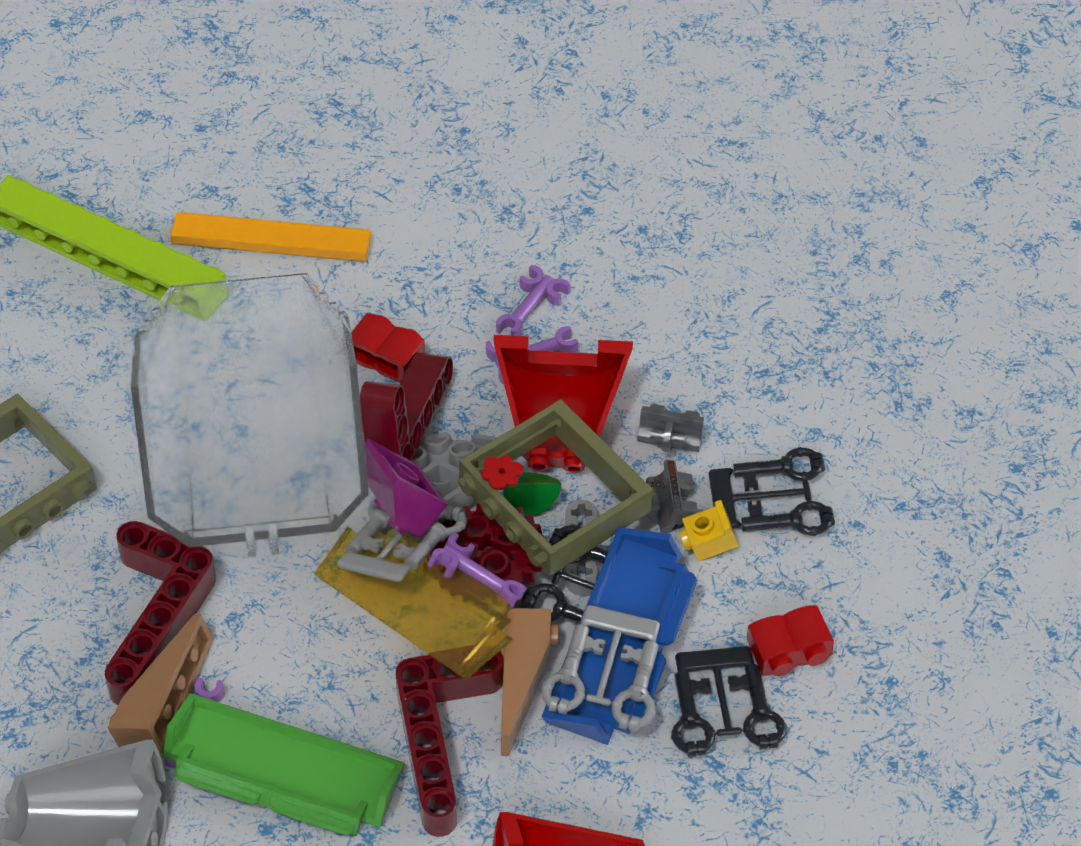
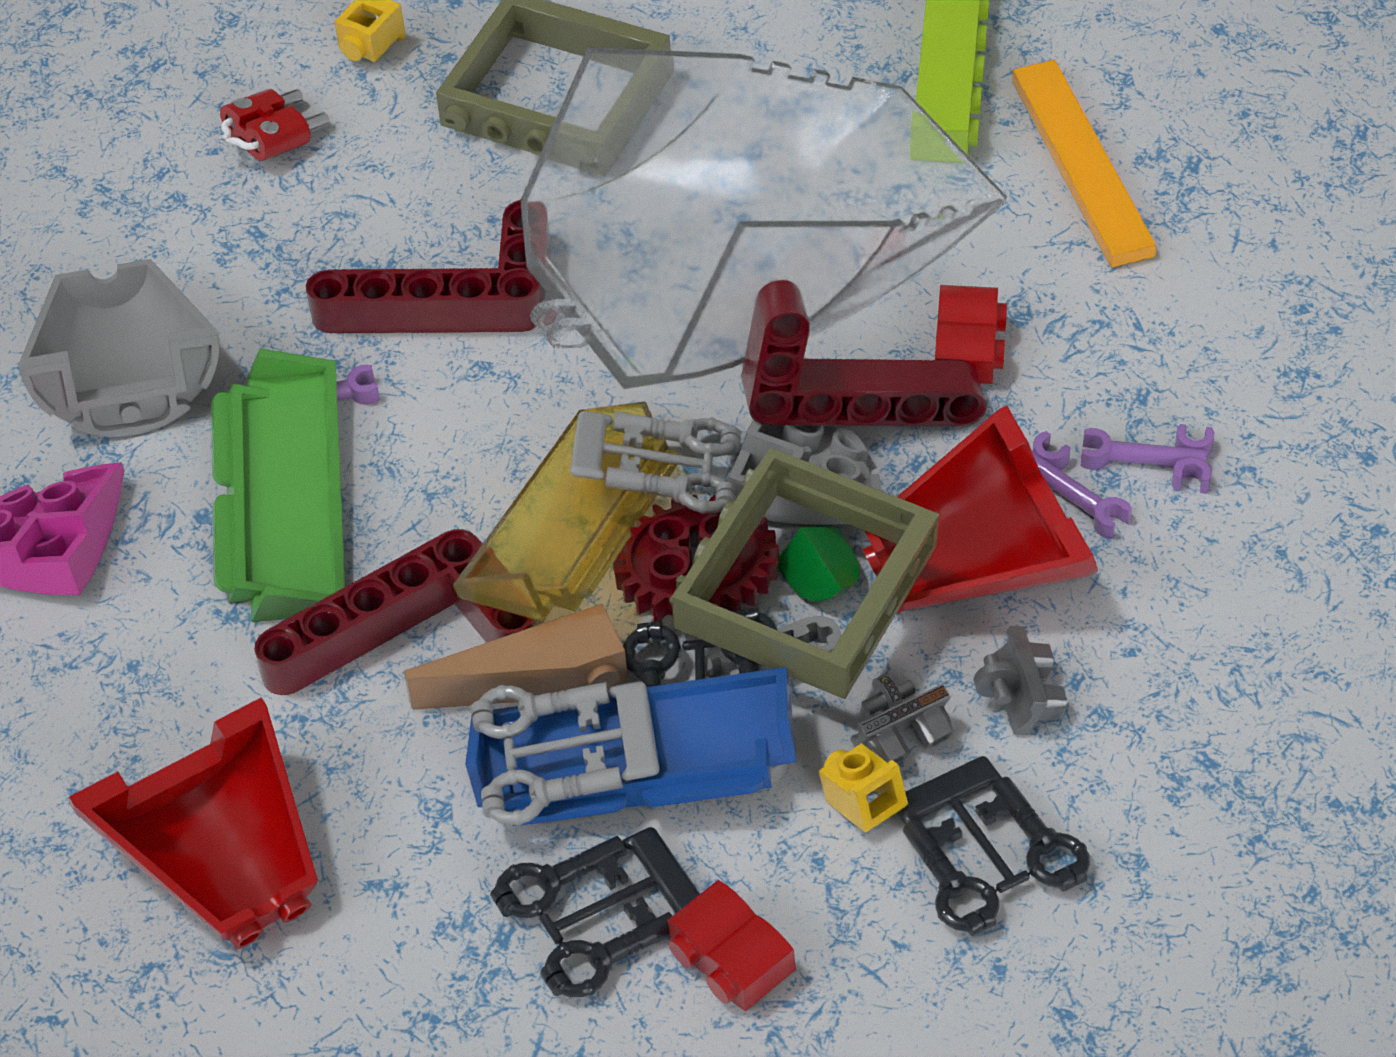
camera: 70 degrees right, 0 degrees up
(162, 687) = (343, 333): medium nougat slope -> none
(402, 490) = (699, 408): magenta slope -> none
(455, 556) = (640, 516): medium lavender bar -> none
(501, 472) = (771, 493): red plant -> none

